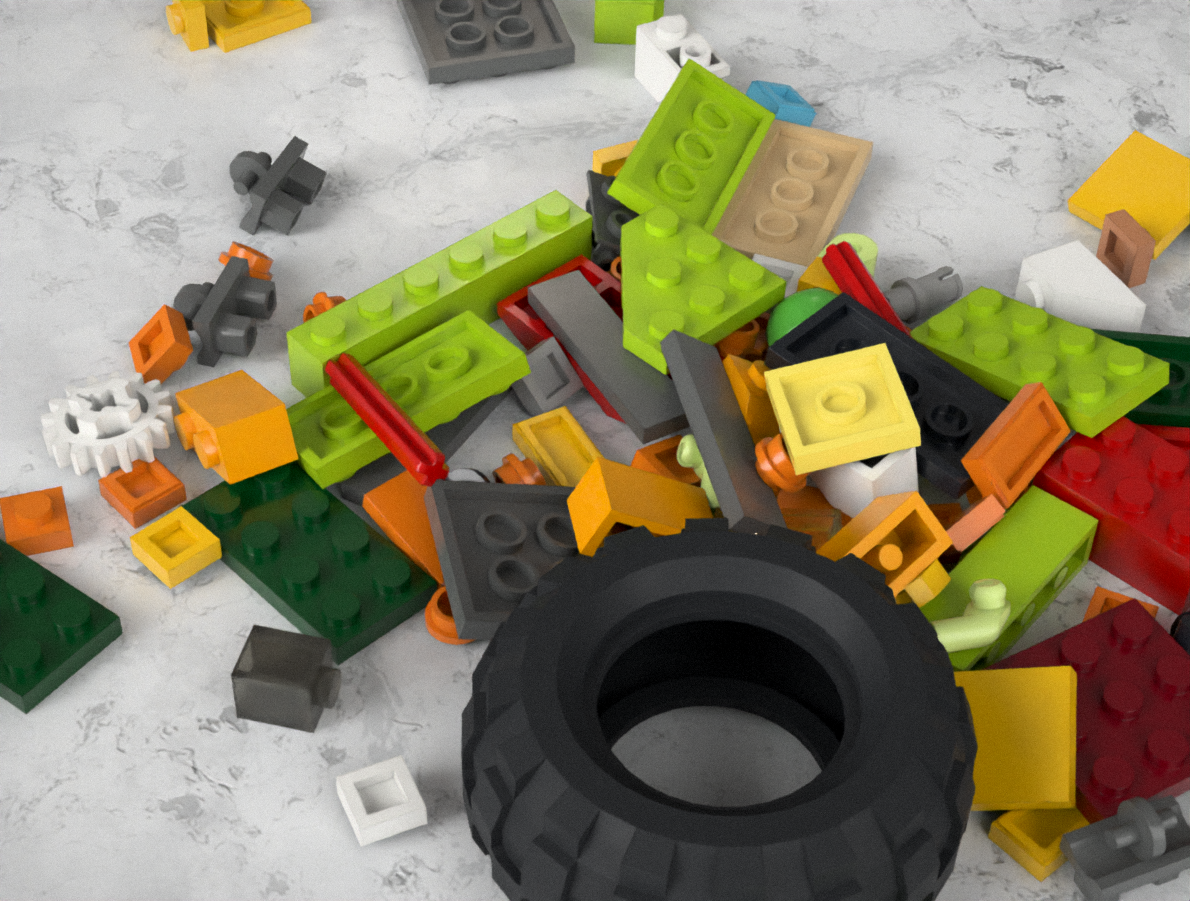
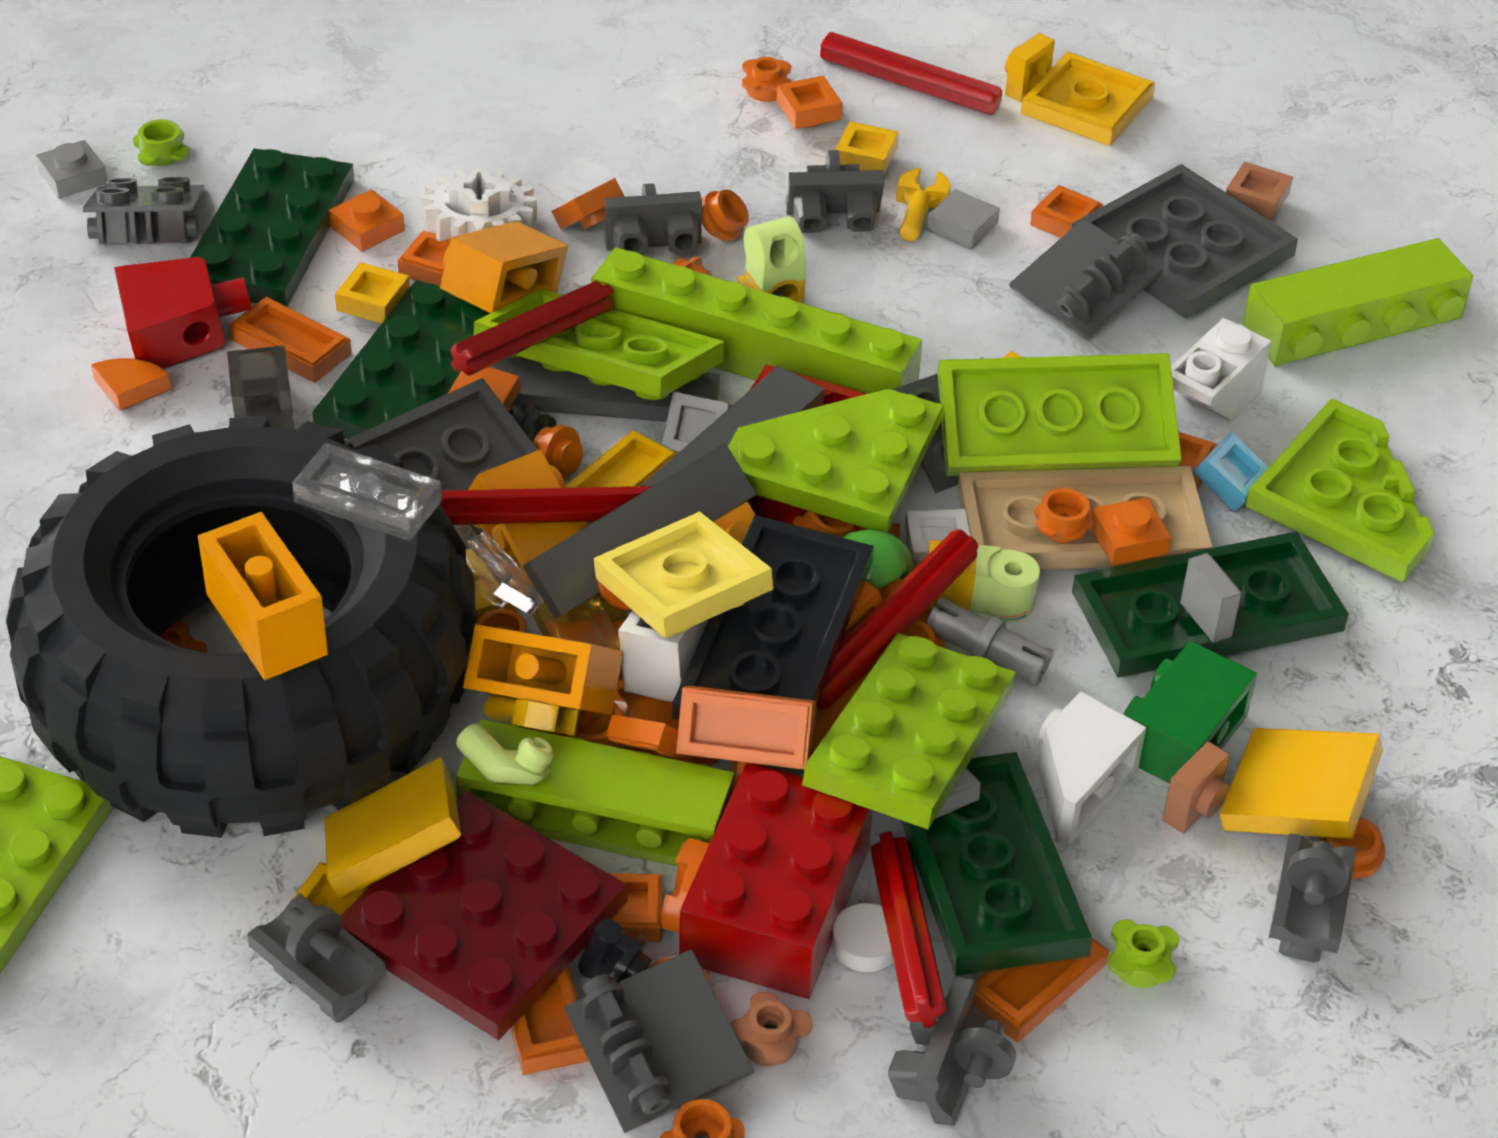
camera: 65 degrees right, 0 degrees up
(52, 174) = (764, 76): none -> orange plate
(91, 716) = (175, 309): none -> red torso
(119, 158) = (809, 102): none -> orange plate
(121, 88) = (911, 73): none -> red axle
(165, 796) = (130, 380): none -> orange tile
(186, 640) = (309, 346): none -> orange tile
(216, 146) = (867, 146): none -> yellow plate
(320, 152) = (919, 200): none -> yellow bar
(355, 131) = (963, 218): none -> light grey tile
(374, 242) = (775, 258): none -> yellowish green leg
(392, 74) = (1062, 209): none -> orange tile
(499, 87) = (1087, 277): none -> dark grey hinge
(668, 473) = (535, 504): none -> red axle
(722, 543) = (367, 491): none -> clear plate
(812, 196) = (1064, 515): none -> orange plate
(836, 61) = (1346, 492): none -> lime plate
(843, 171) = (1130, 531): none -> orange plate
(877, 646) = (263, 595): none -> light orange brick
(924, 174) = (1141, 618): none -> dark green plate
(956, 153) = (1210, 597): none -> light grey tile
(1043, 212) = (1188, 704): none -> green brick
(1131, 569) = (688, 863): none -> orange tile

